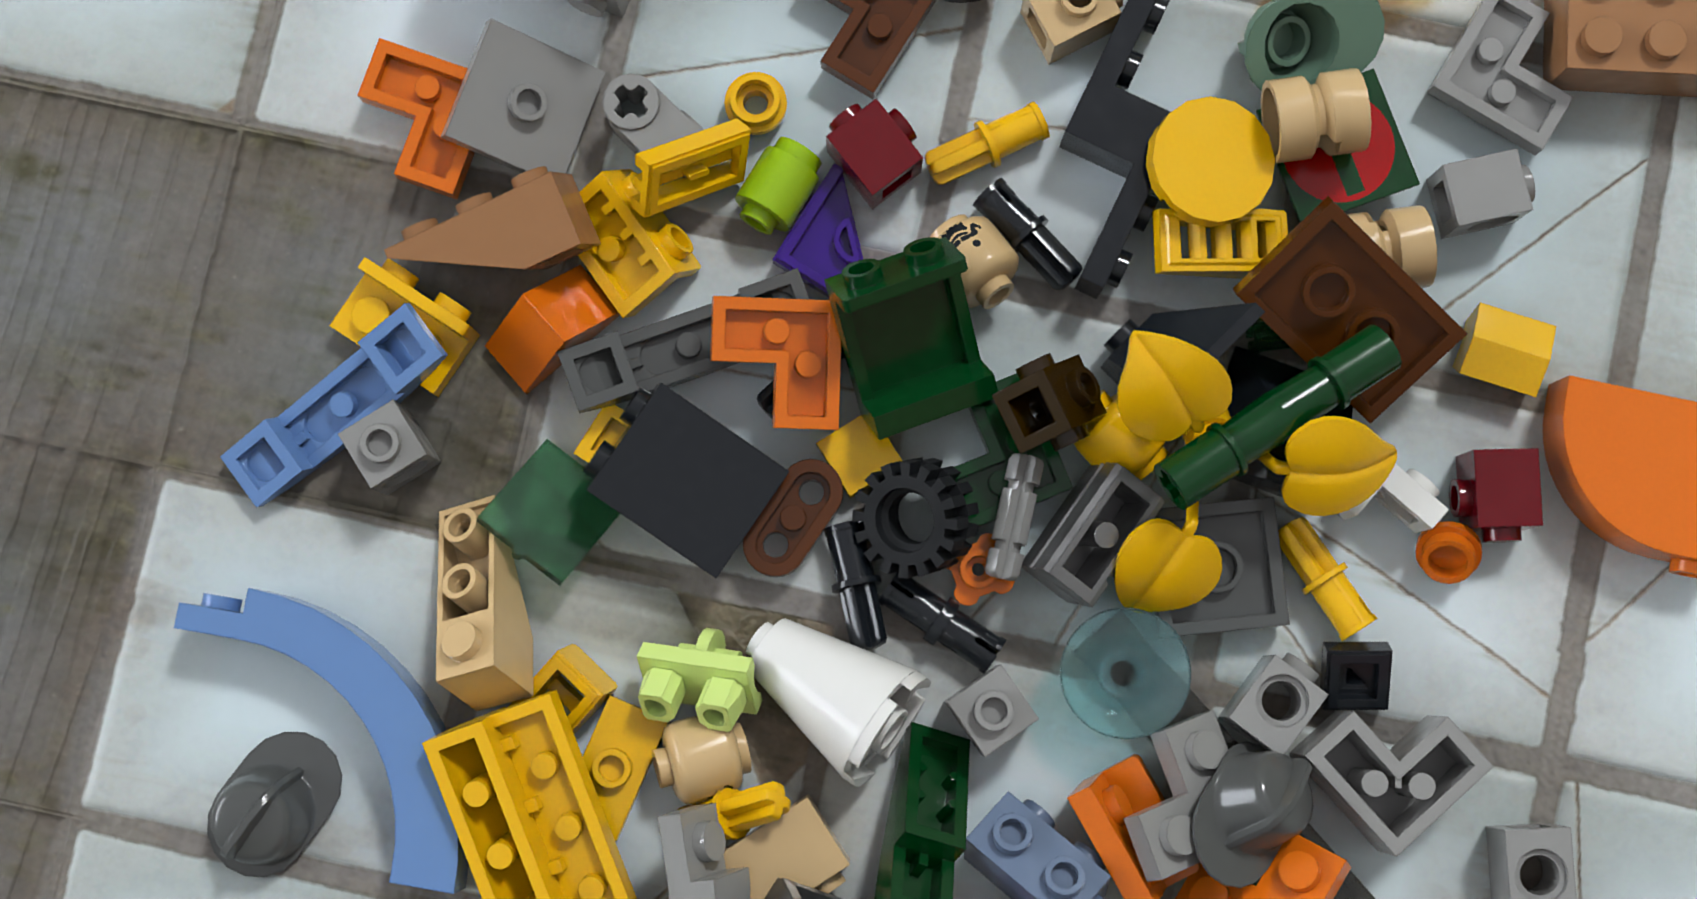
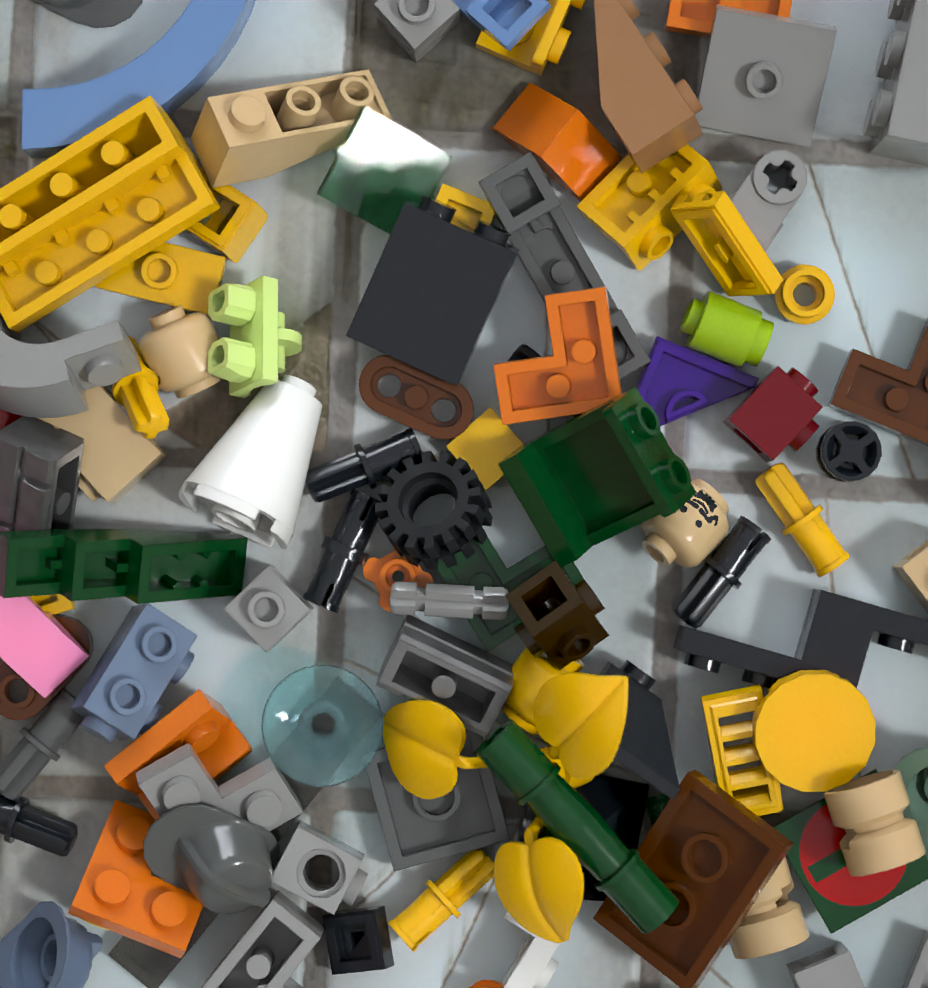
camera: 80 degrees right, 5 degrees up
(921, 72) = (857, 446): none -> black wheel

